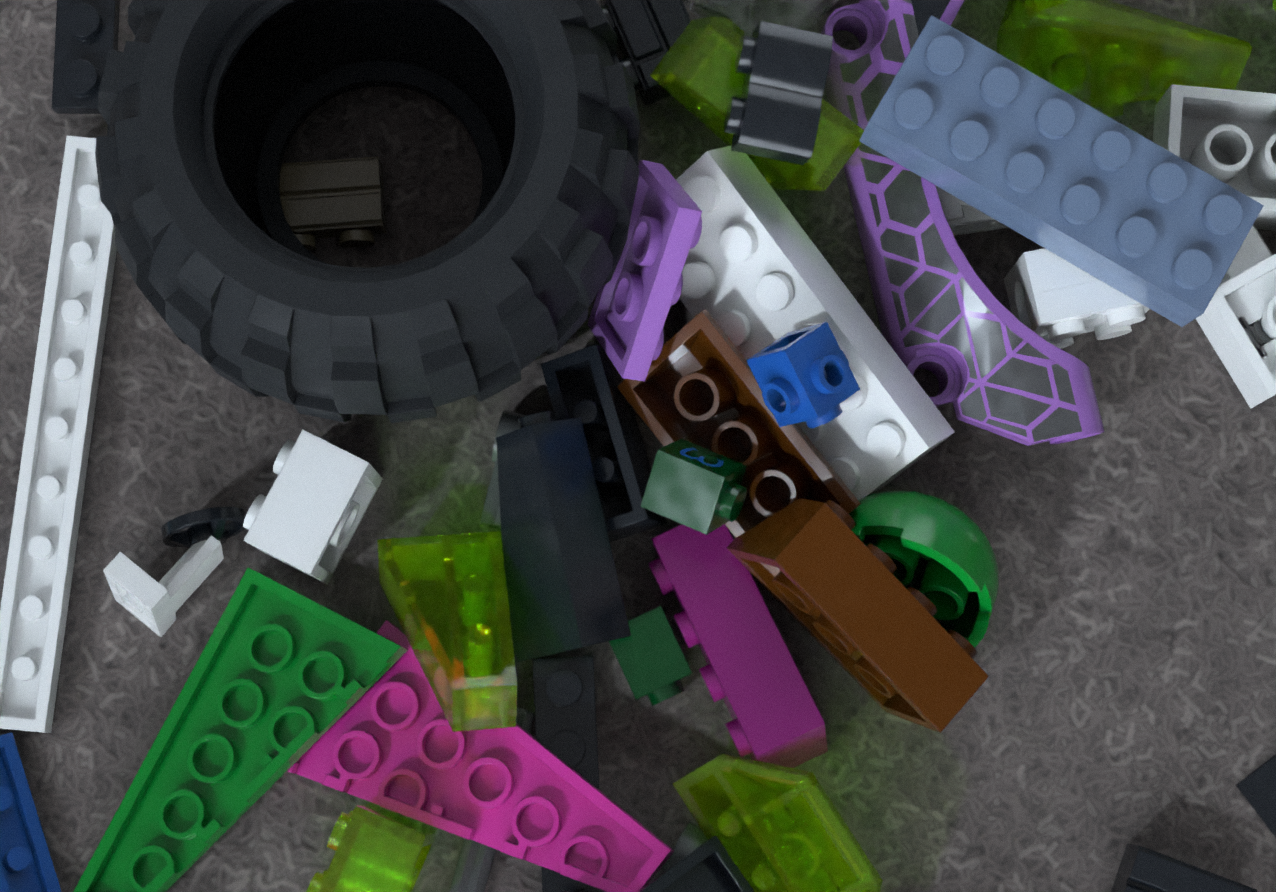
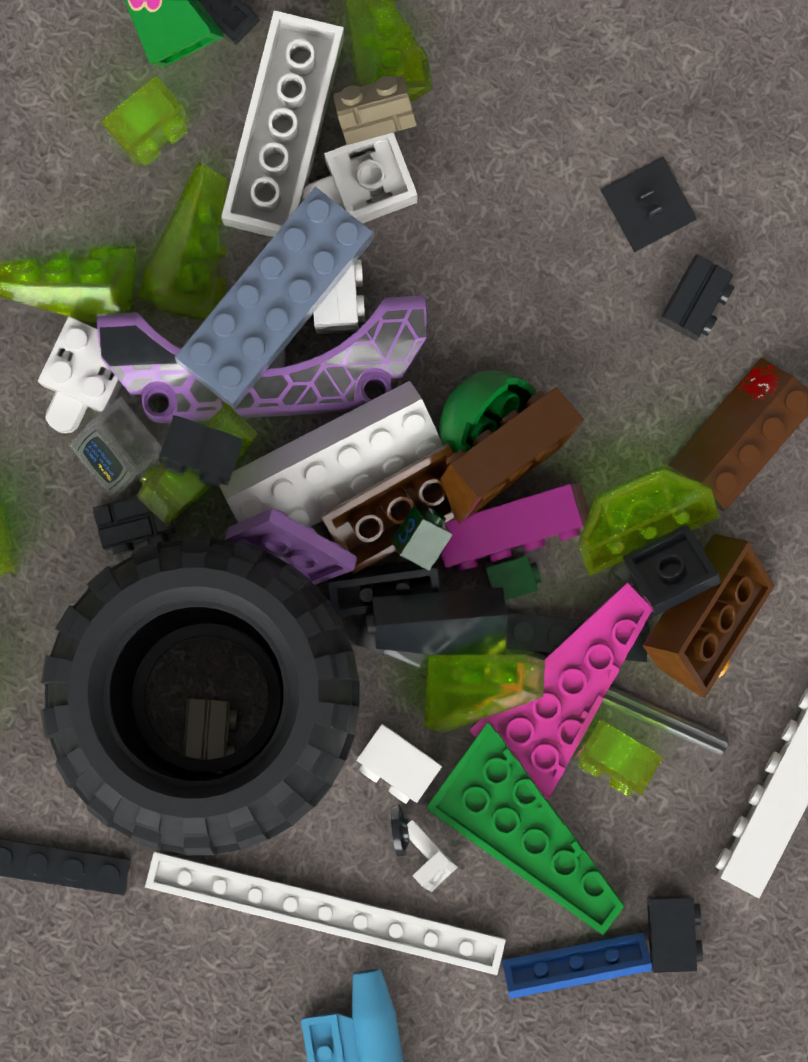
camera: 85 degrees left, 5 degrees up
(804, 376) = (371, 464): blue brick -> none

